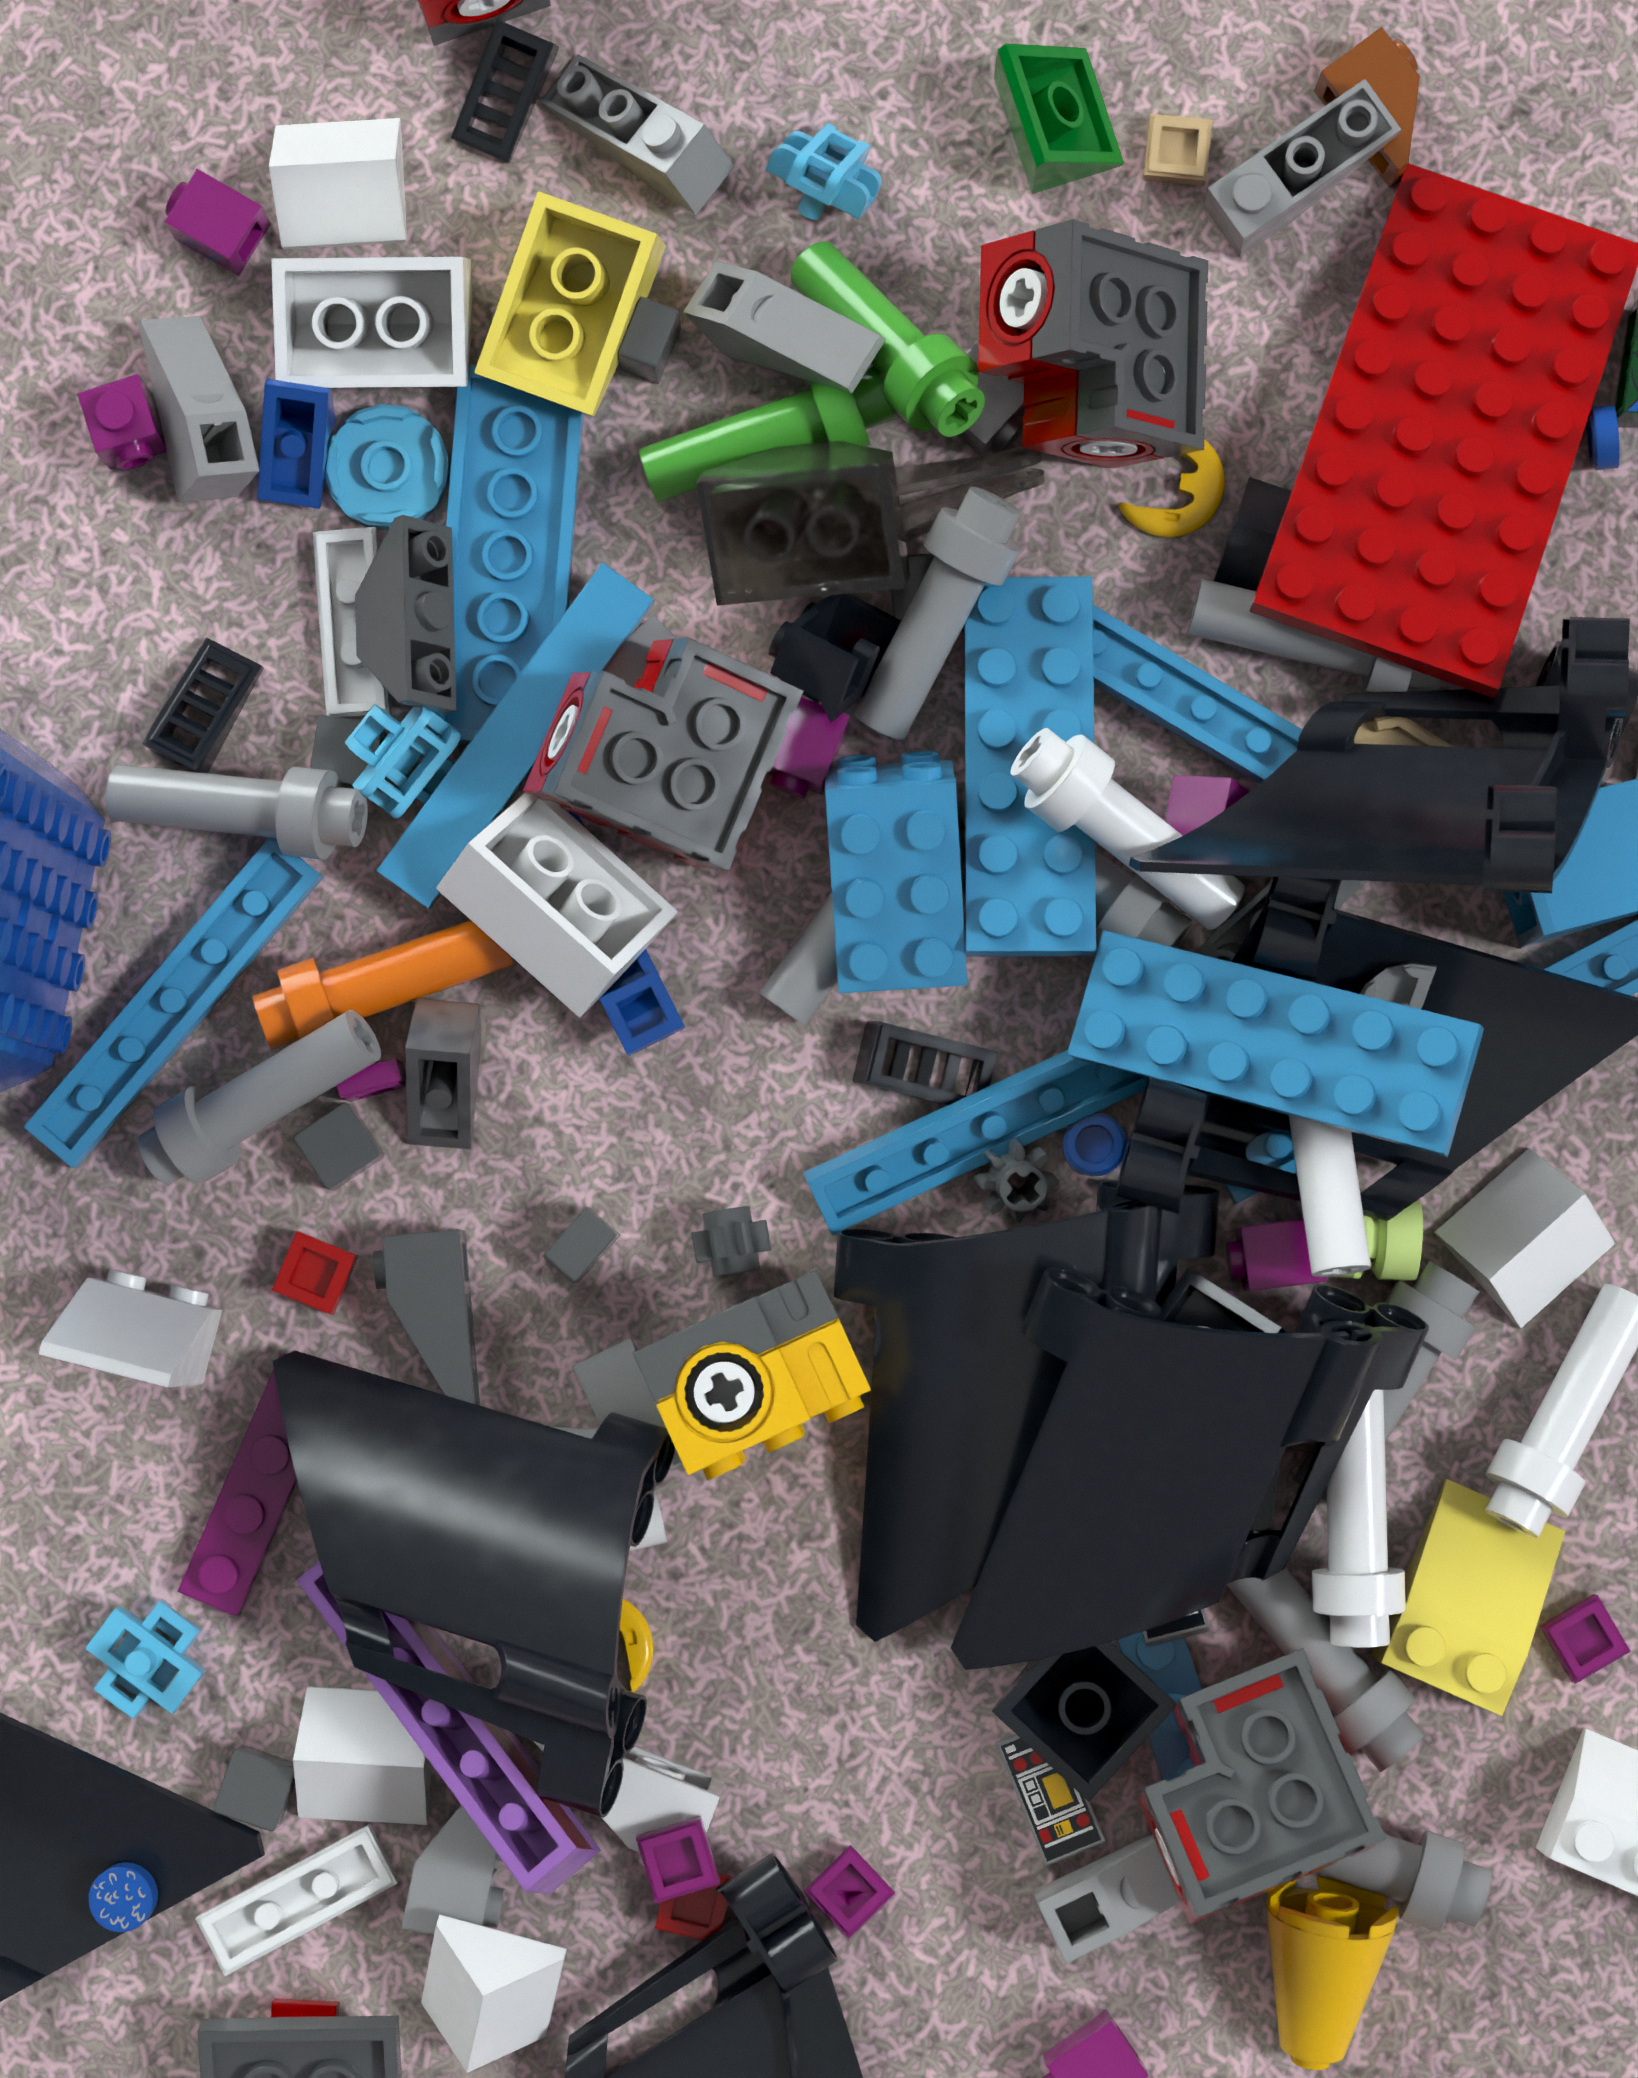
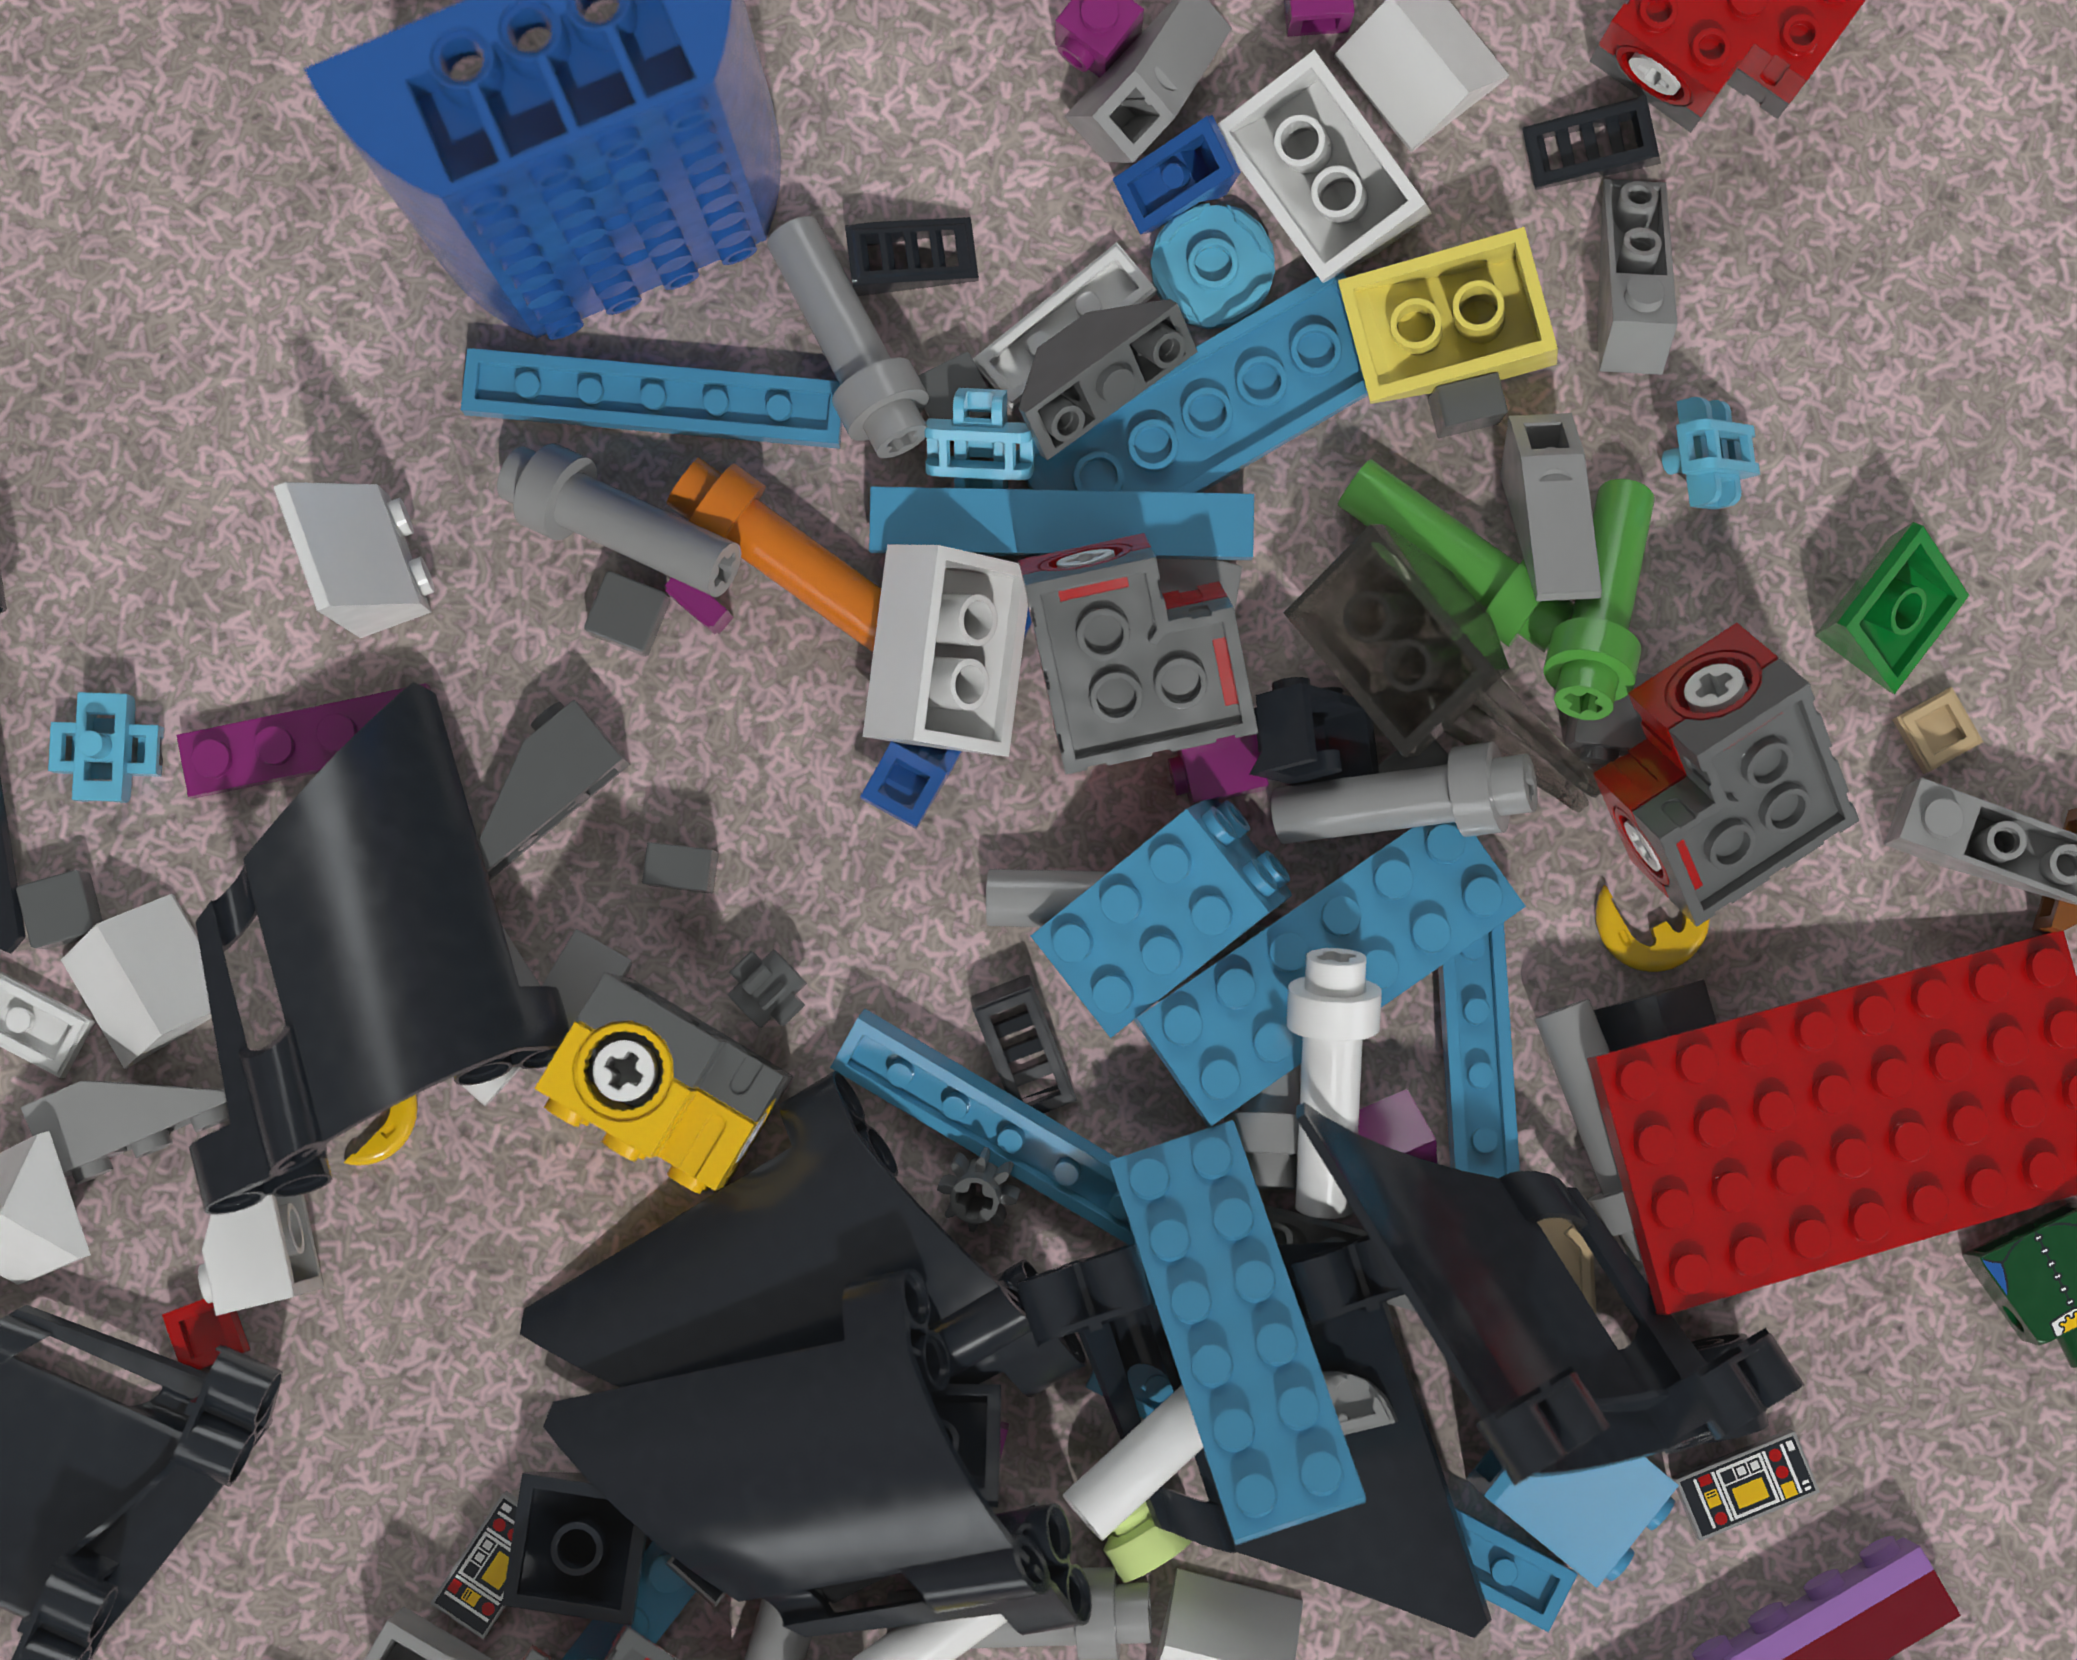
camera: 50 degrees right, 0 degrees up
(315, 1272) = (510, 666): red plate -> none
(442, 1073) = (744, 655): flat silver slope -> none
(475, 1759) = (184, 1083): medium lavender brick -> none
(678, 1859) = (218, 1298): magenta tile -> none
(849, 1892) = (299, 1455): magenta tile -> none
(1094, 1145) = (1054, 1234): blue tile -> none
(1270, 1256) = (1060, 1445): magenta brick -> none
(1603, 437) = (1946, 1255): blue tile -> none

